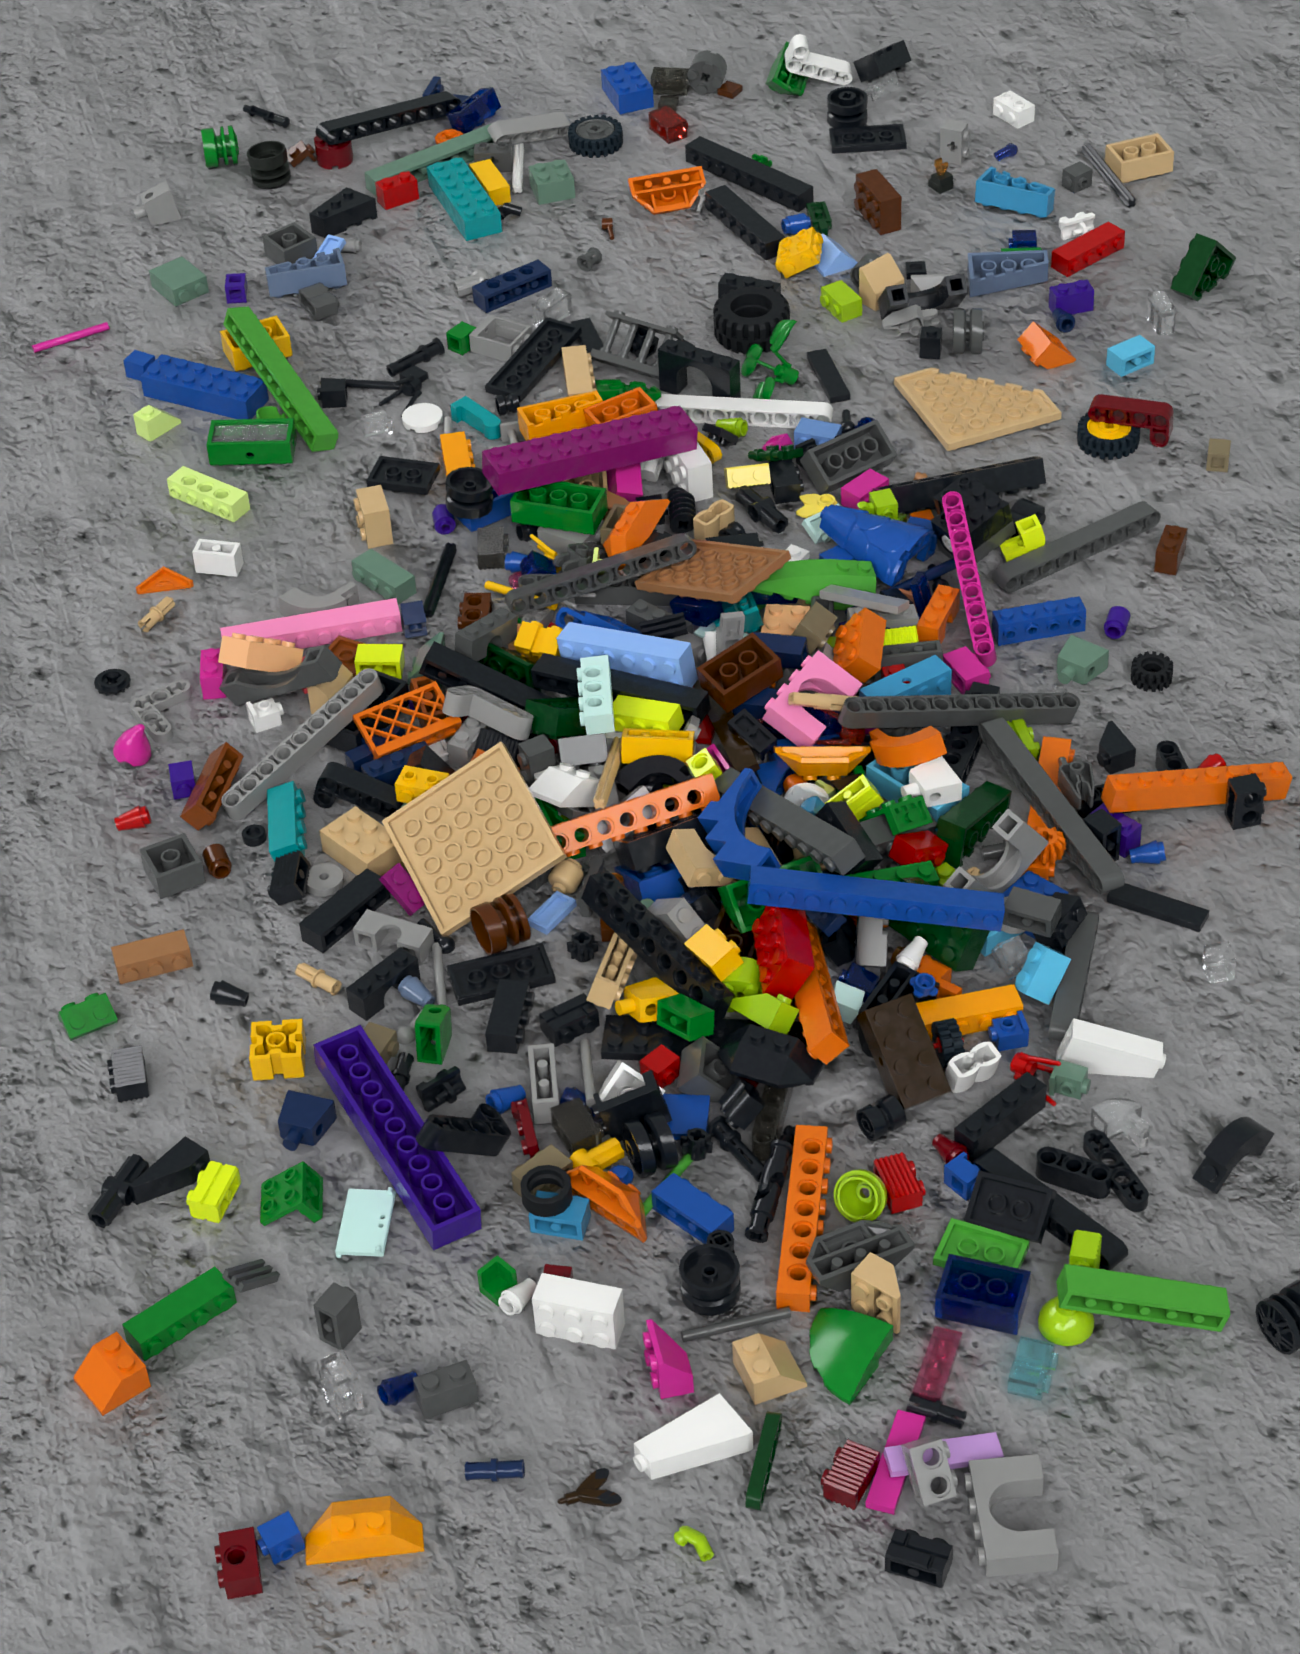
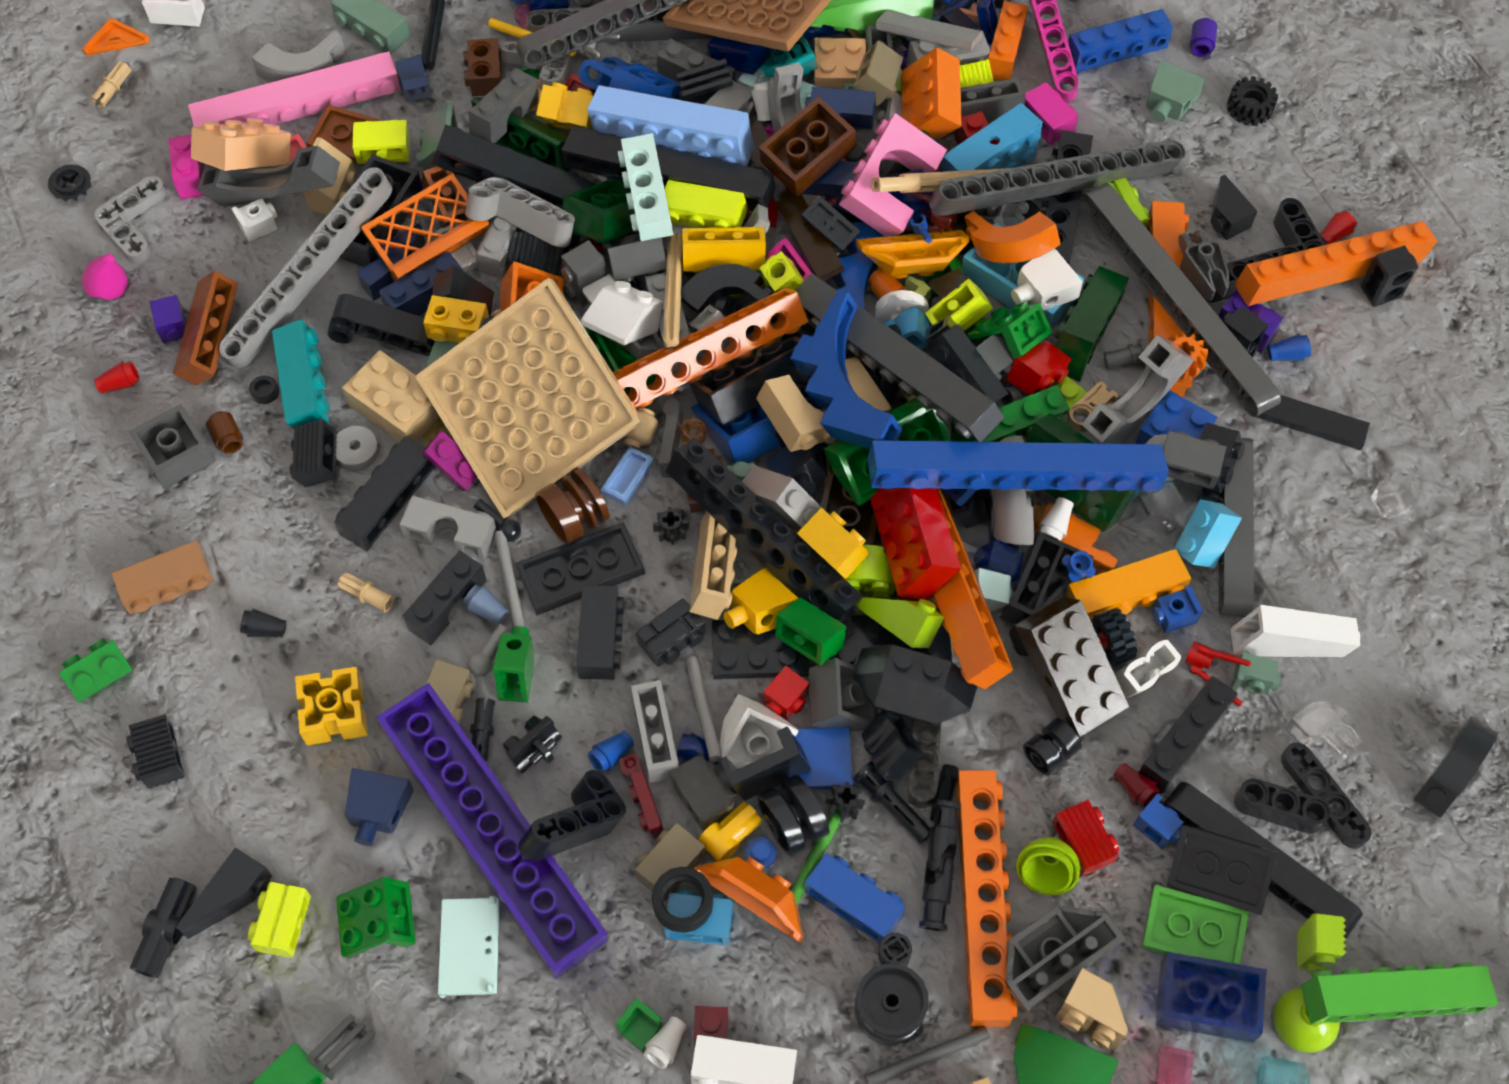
camera: 10 degrees left, 20 degrees up
(830, 739) = (921, 228): none -> blue hand

